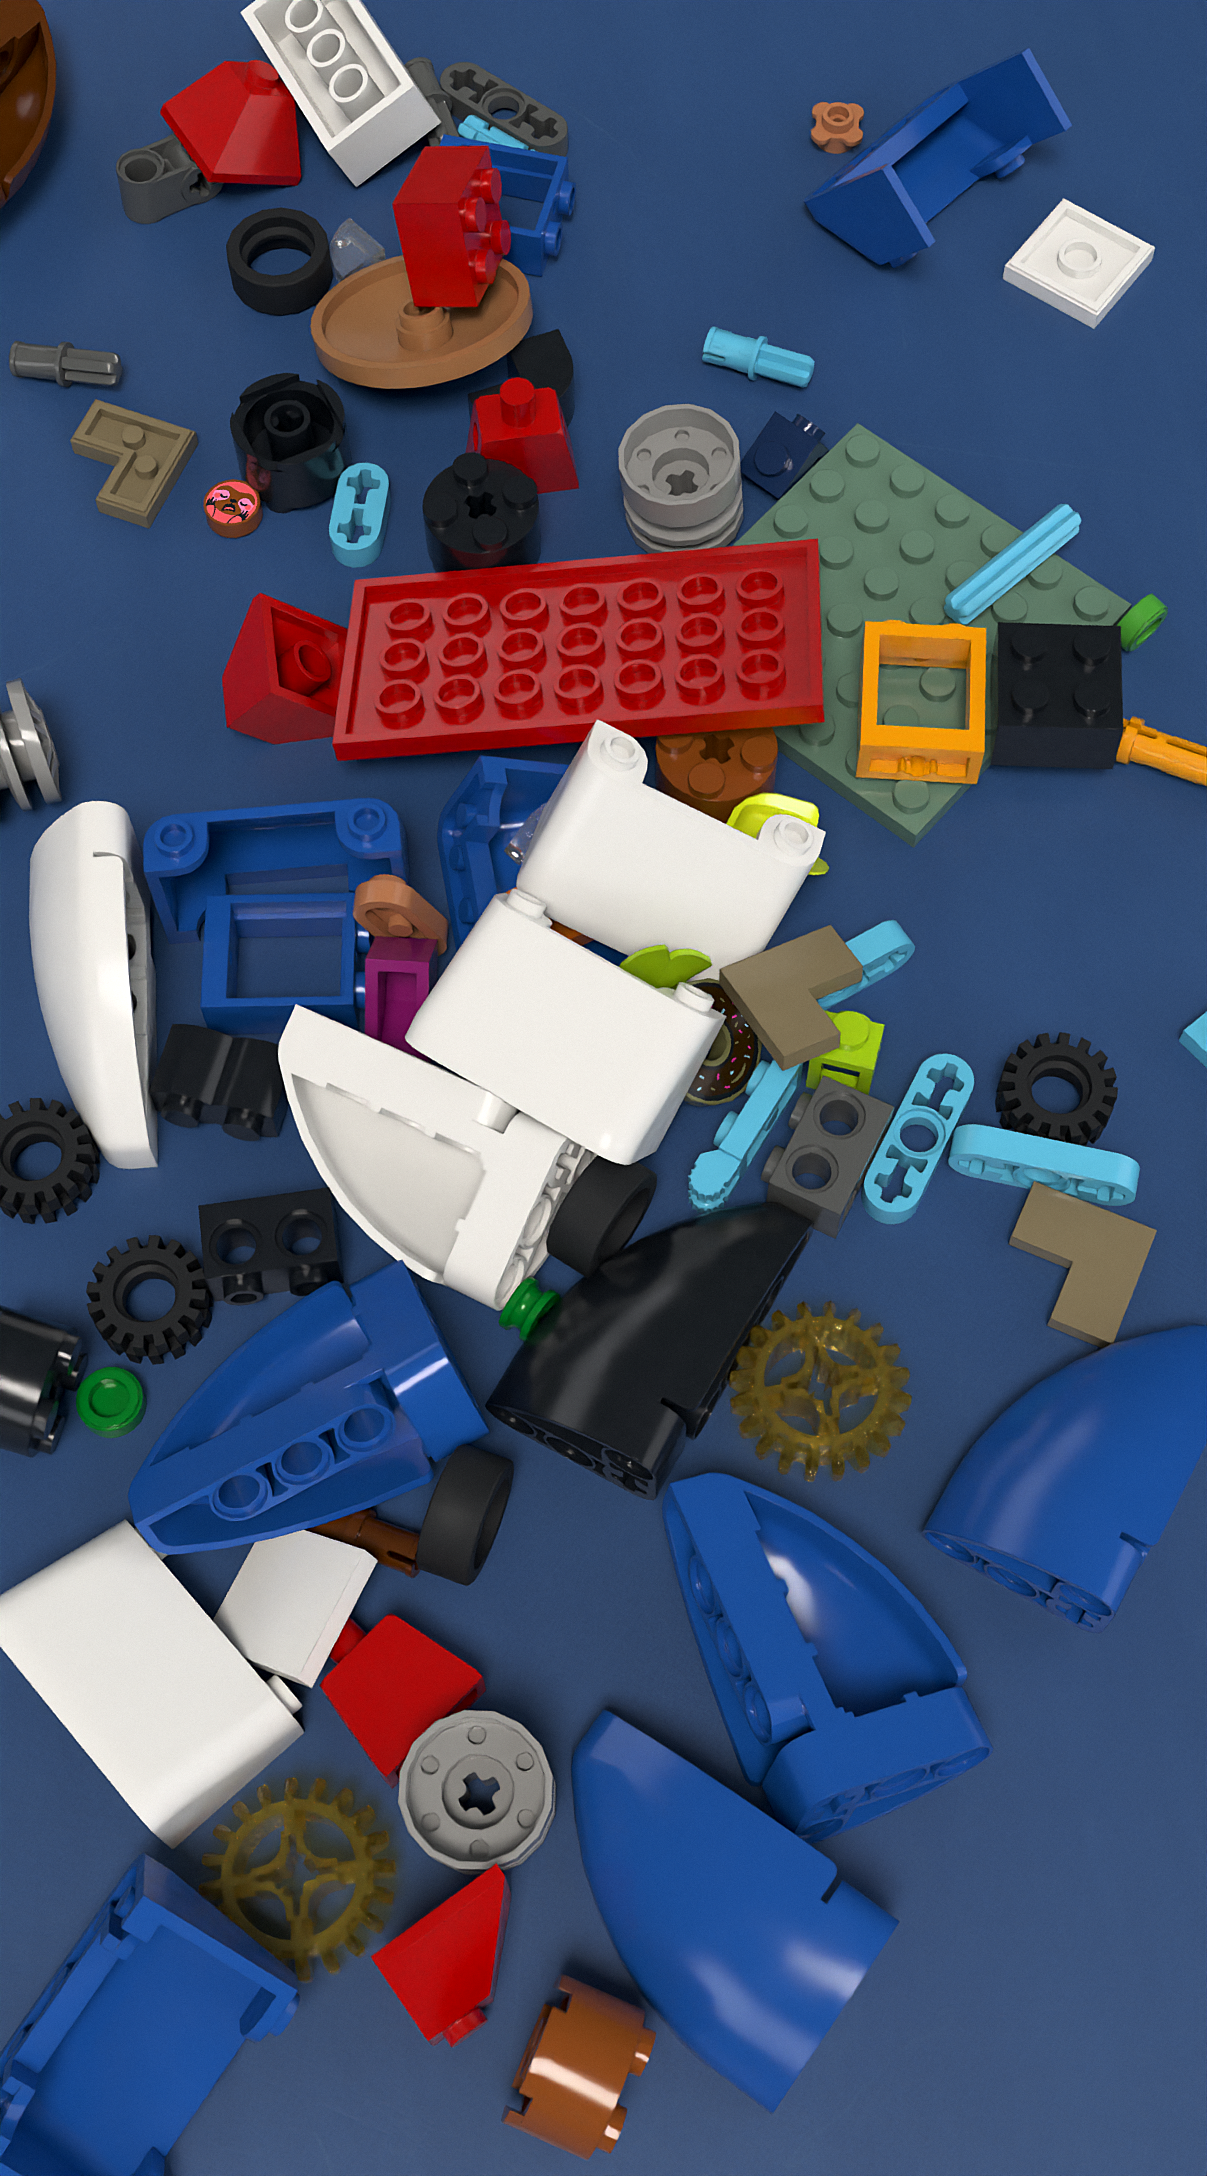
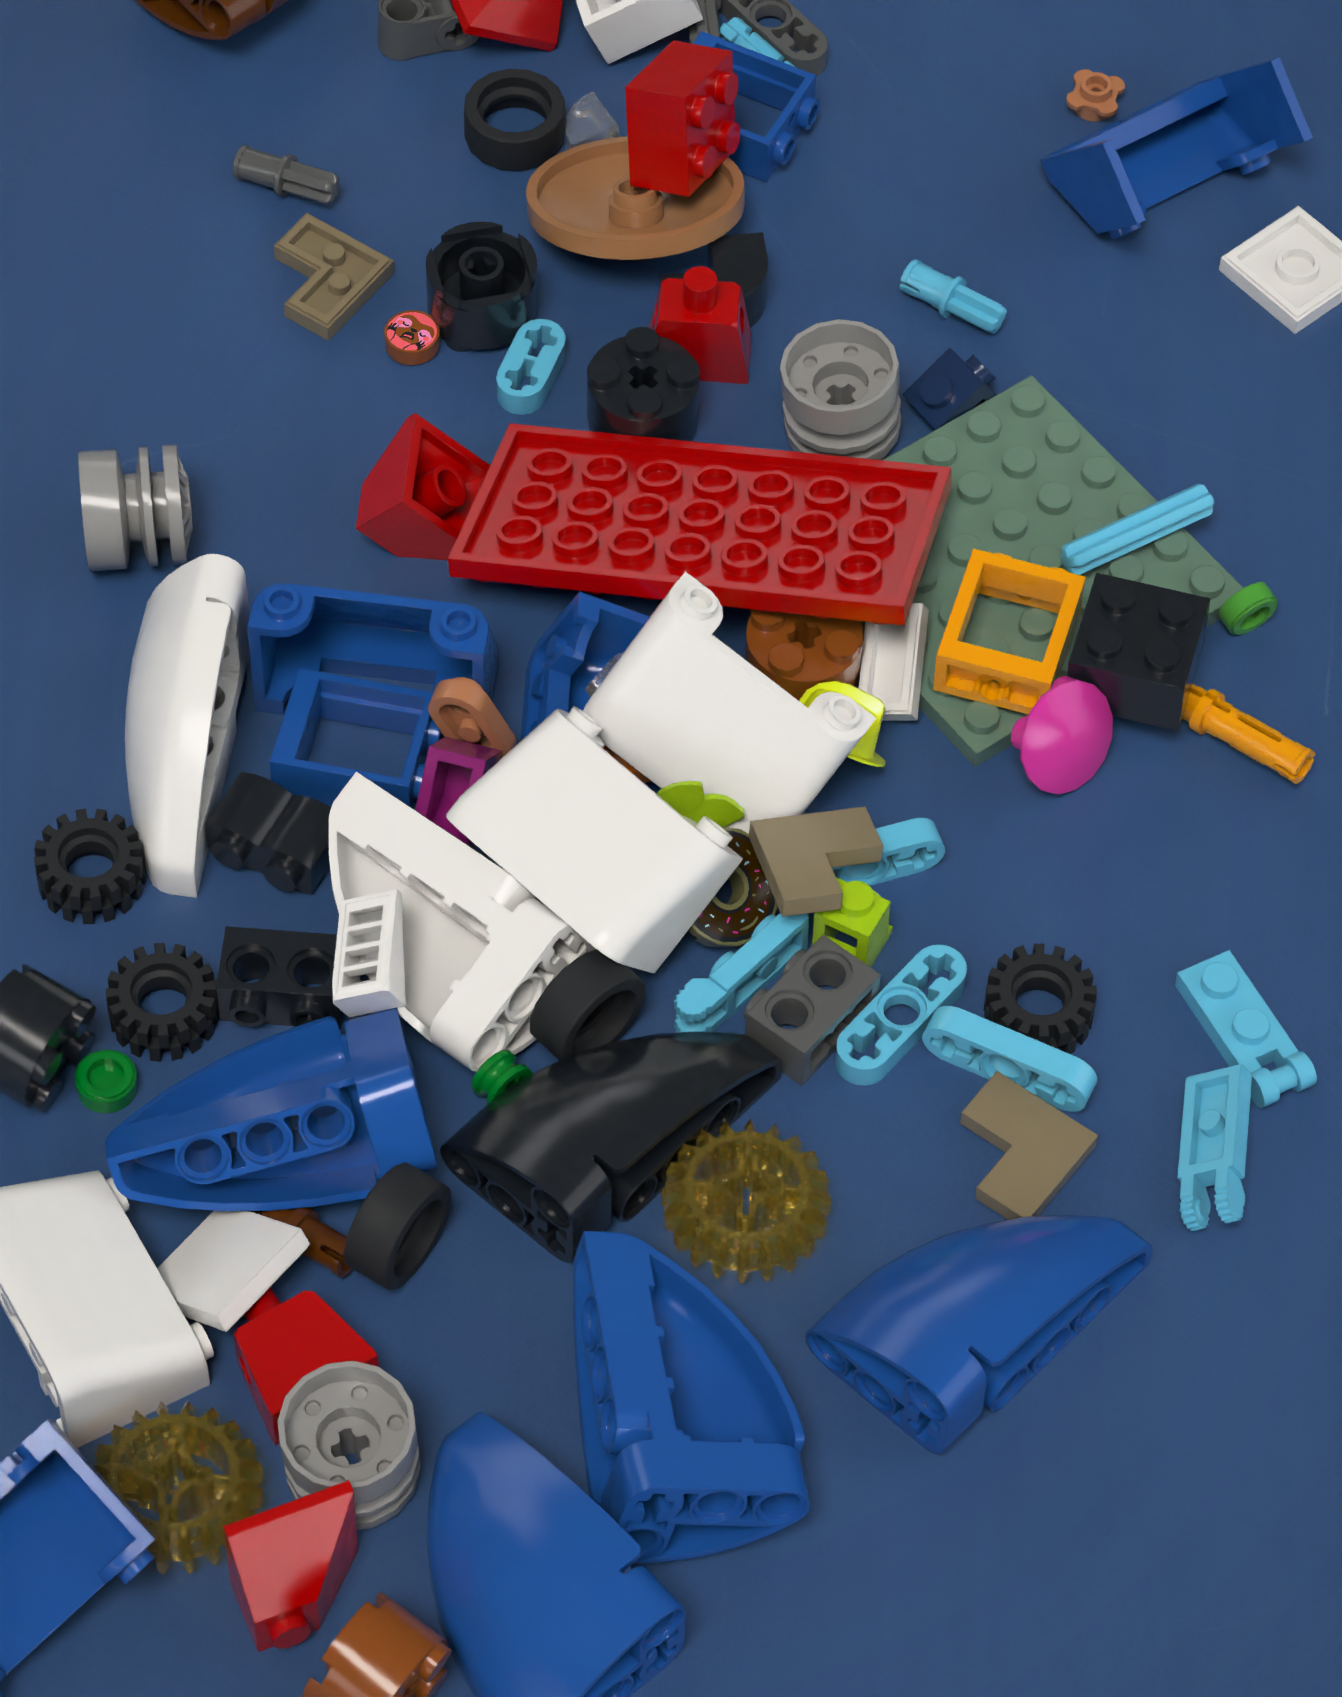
camera: 10 degrees right, 10 degrees down
(391, 1240) = (388, 988): none -> white slope
(811, 762) = (894, 663): none -> white tile
(1004, 800) = (1064, 736): none -> dark pink dish

